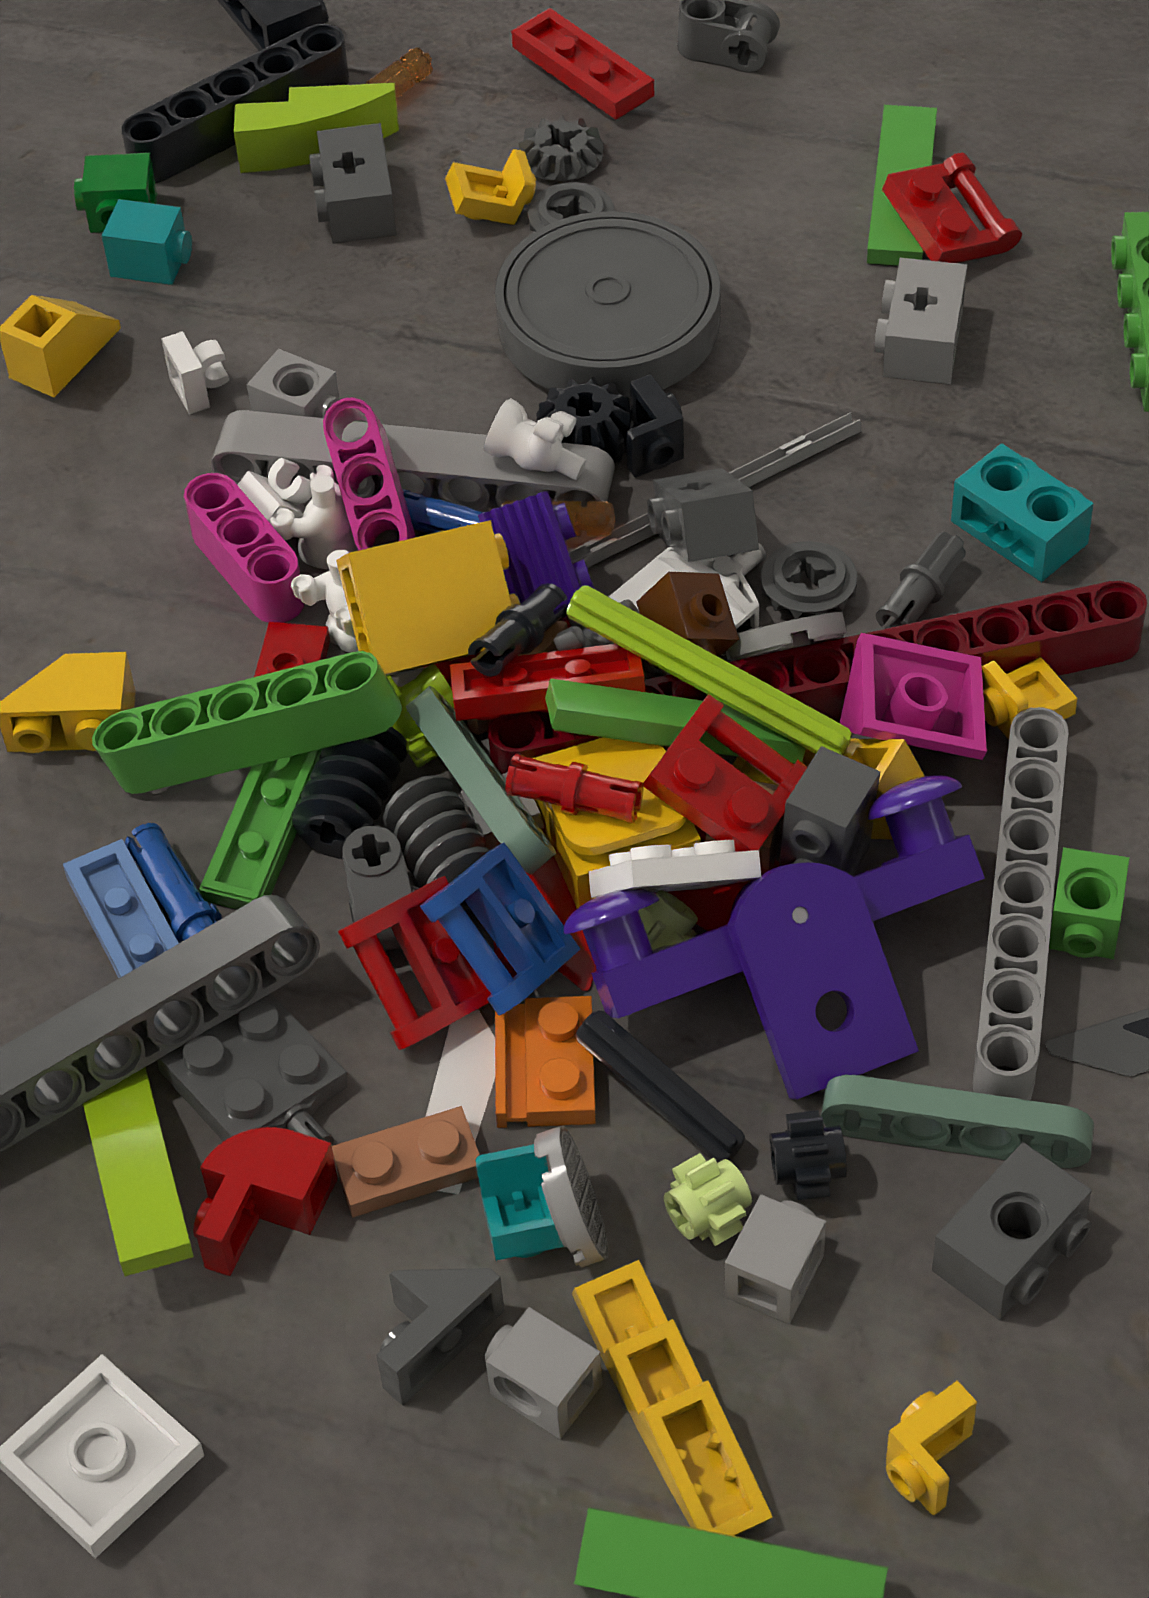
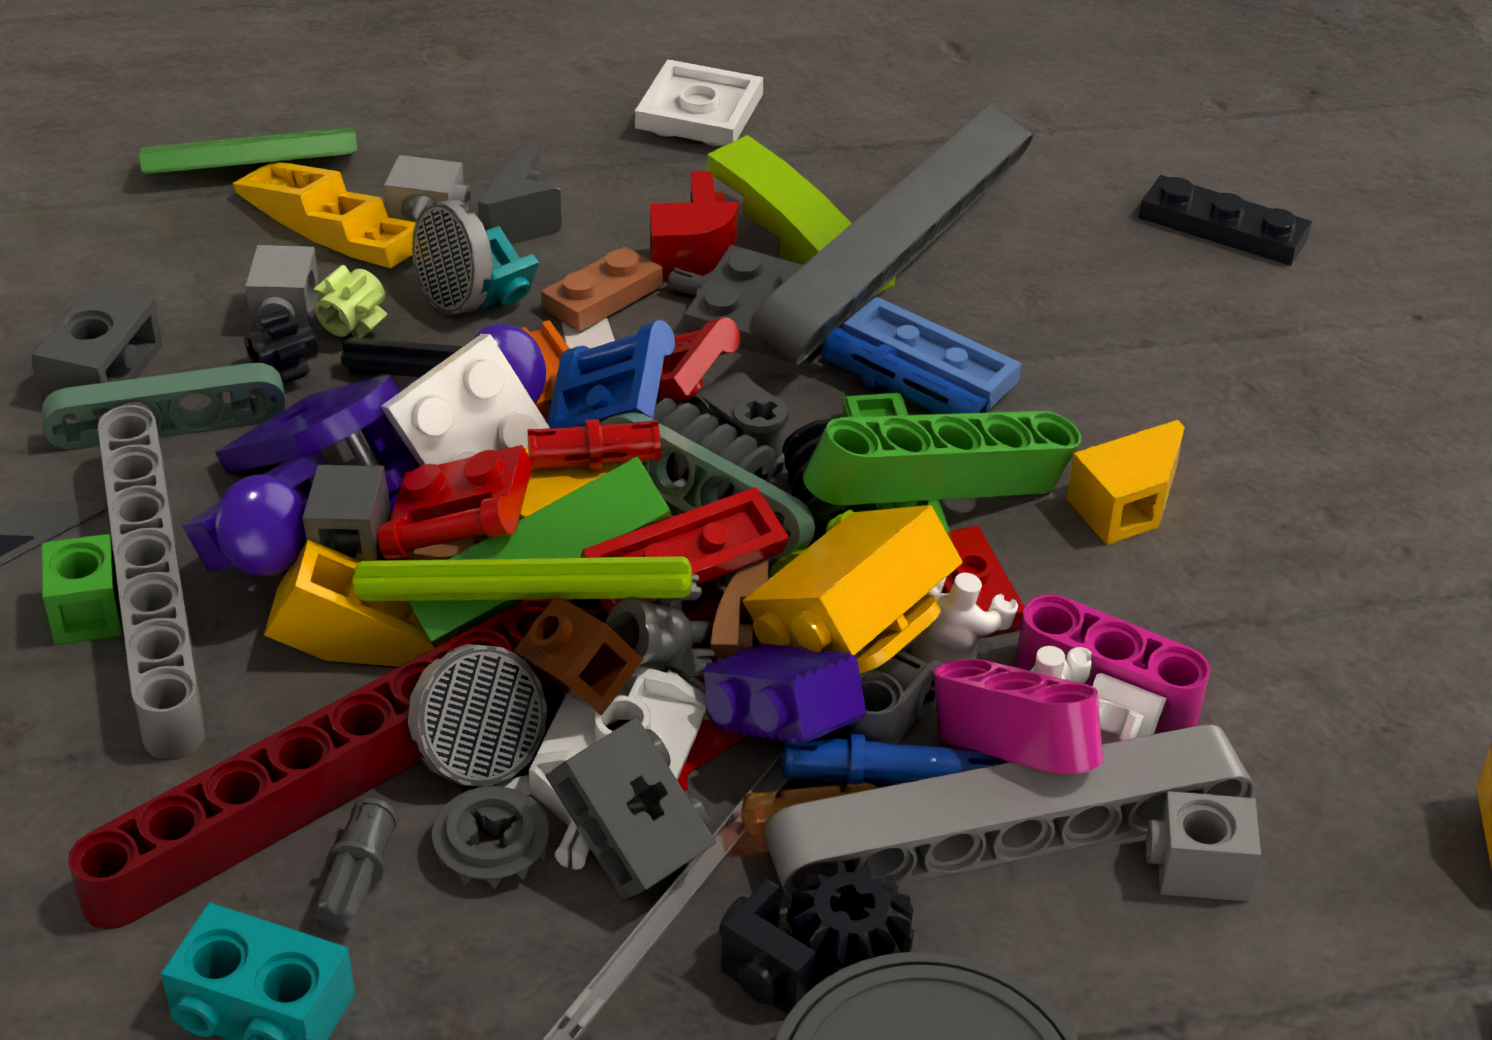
camera: 150 degrees right, 10 degrees down
(194, 369) = (1353, 840): white tile -> none
(518, 629) = (738, 574): black pin -> none
(532, 443) = (864, 798): white piece -> none
(916, 696) = (298, 657): dark pink slope -> none
(925, 1434) = (130, 230): yellow bracket -> none
(1022, 689) = (210, 737): yellow bracket -> none

